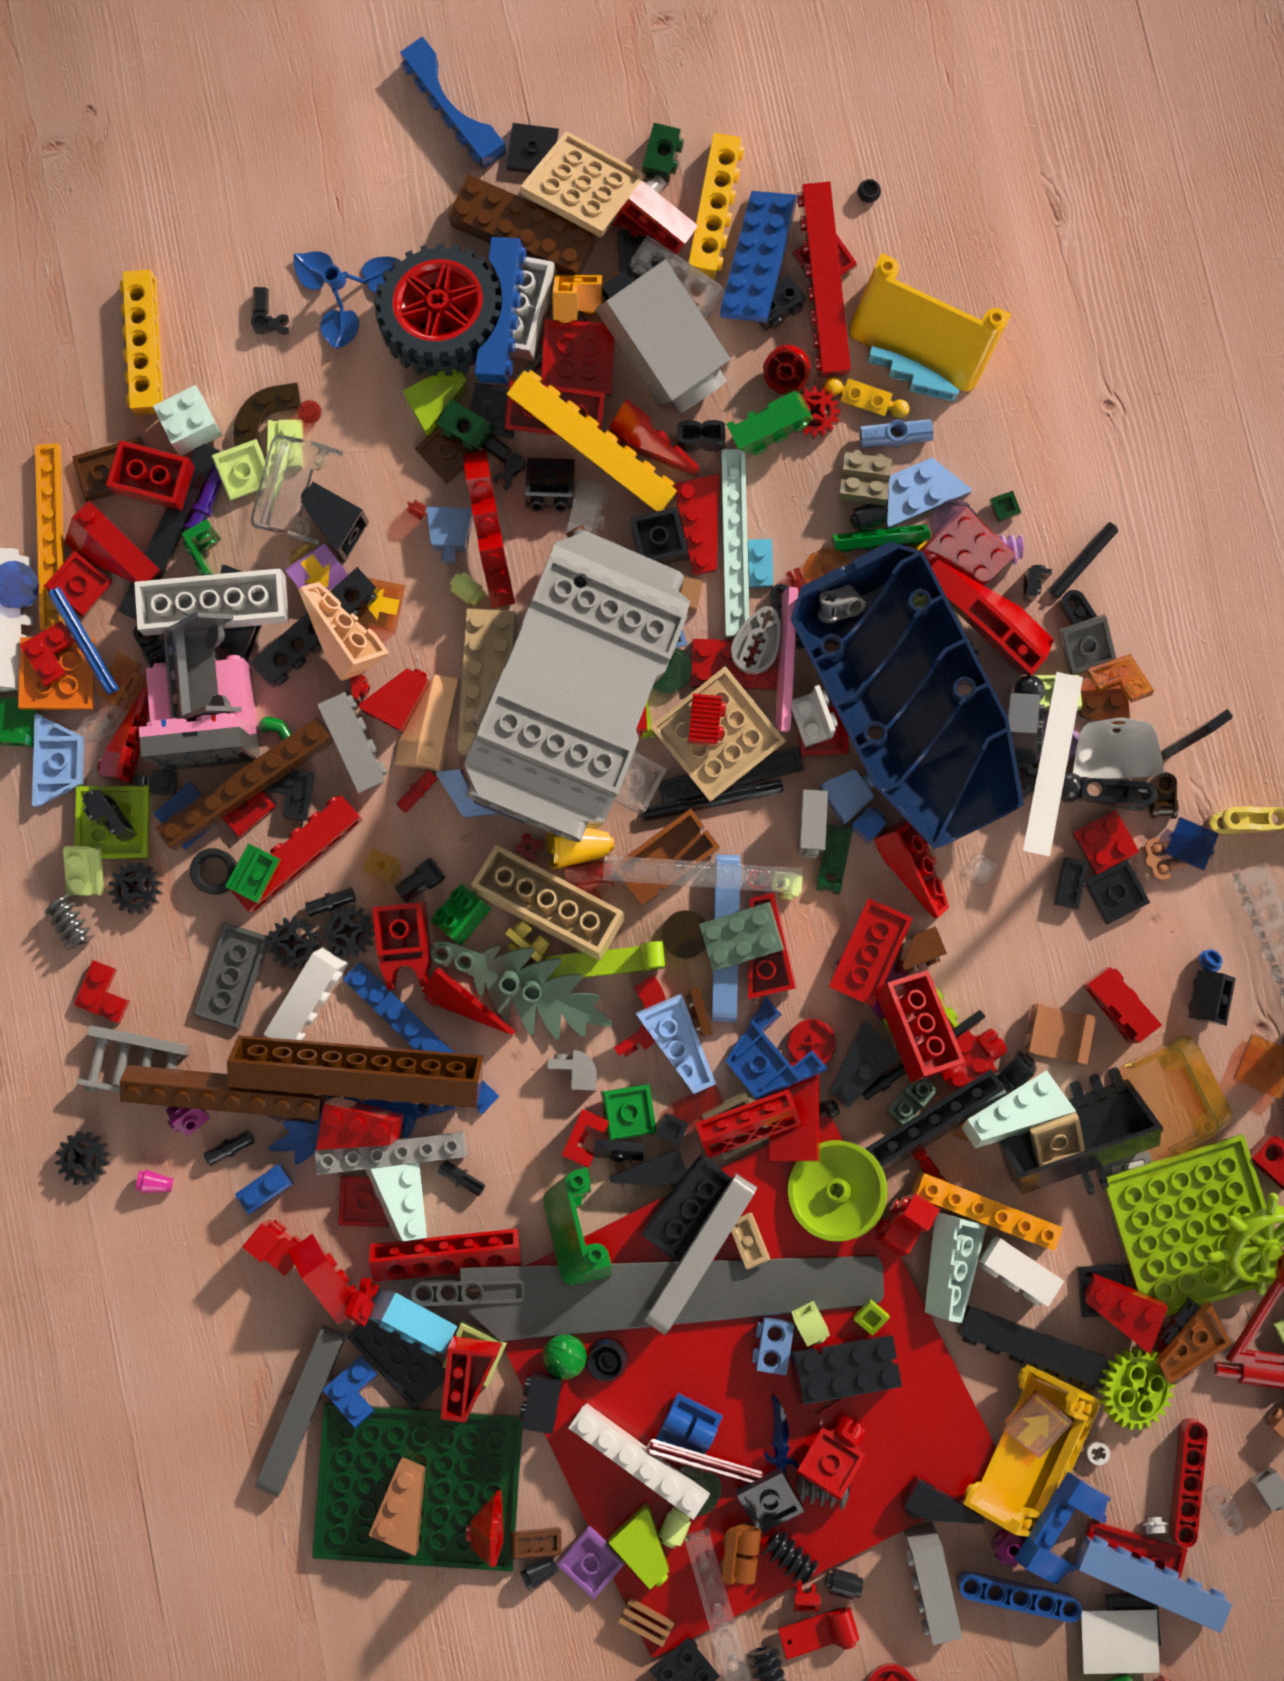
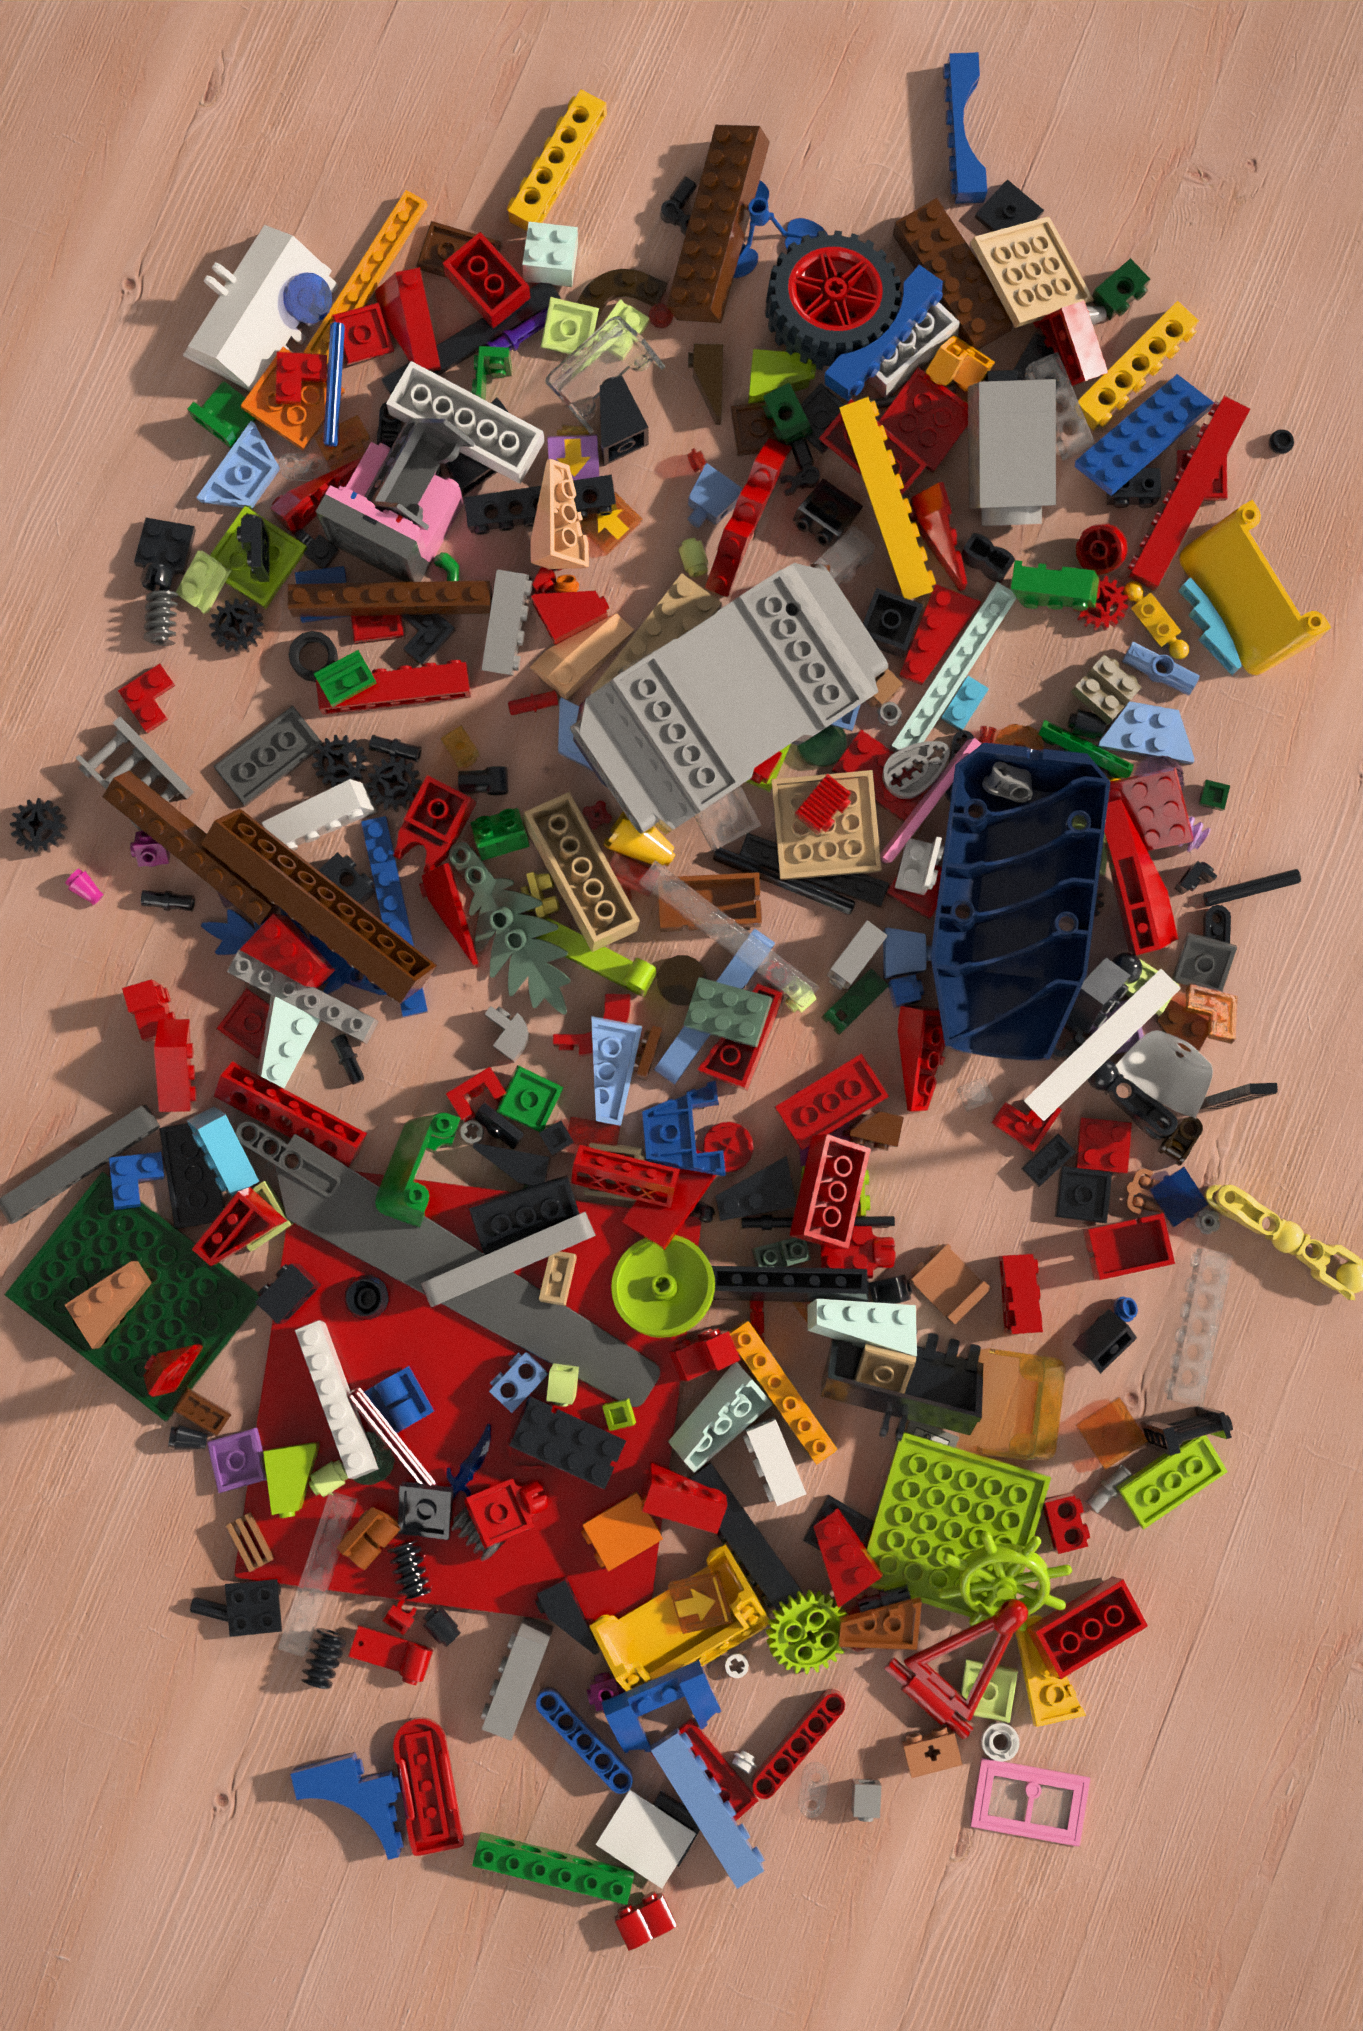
camera: 25 degrees right, 0 degrees up
(34, 867) = (163, 552): none -> black plate
(264, 1189) = (174, 955): blue brick -> none
(306, 308) = (718, 223): none -> reddish brown brick
(351, 1026) = (341, 866): none -> black brick
(360, 1303) = (190, 1105): red plate -> none
(379, 434) = (707, 374): none -> dark brown slope
(379, 678) = (566, 583): none -> orange plate
(564, 1357) = (332, 1268): green piece -> none
(607, 1166) = (480, 1133): none -> light grey bush
(706, 605) = (895, 714): none -> light grey plate
(937, 1410) = (621, 1532): none -> orange panel
(968, 1352) = (682, 1499): none -> red wedge
(1035, 871) = (1024, 1129): none -> red plate
(1180, 910) = (1129, 1246): none -> red piece
(1222, 852) = (1200, 1221): none -> light grey plate

